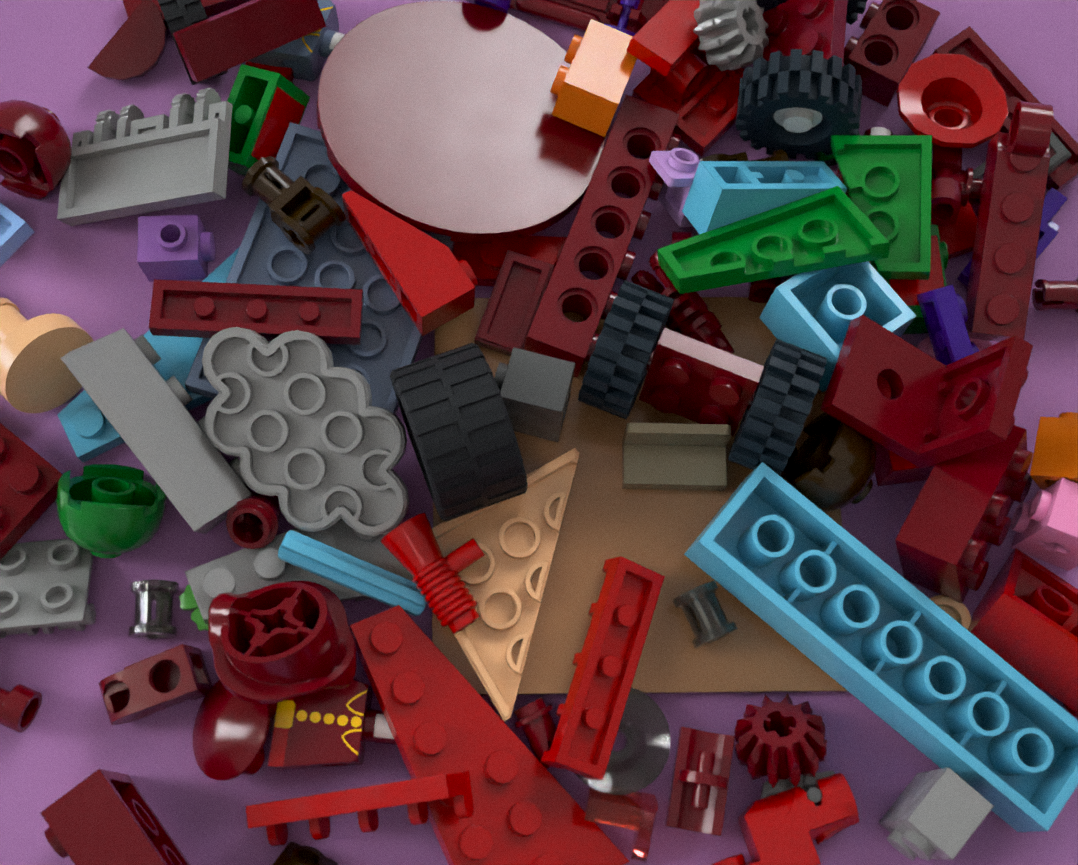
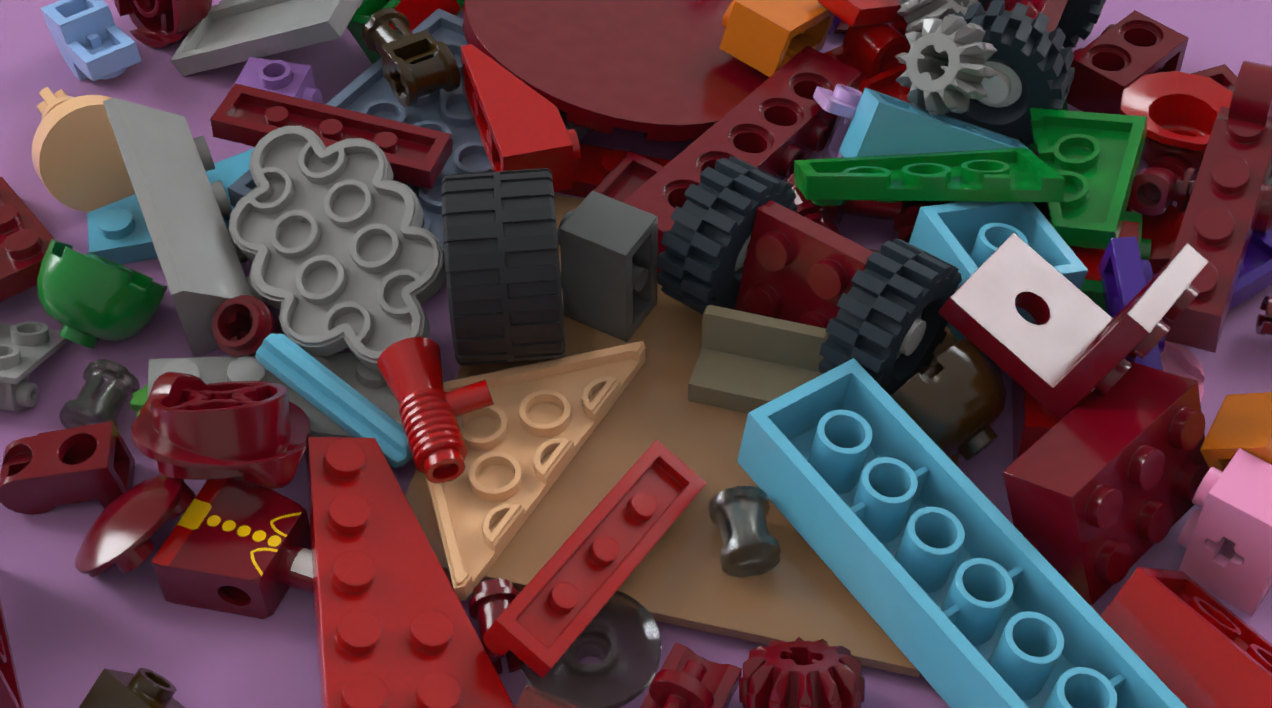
camera: 20 degrees right, 25 degrees down
(363, 801) = (242, 615): red hinge -> none
(766, 130) = (966, 64): none -> light grey gear

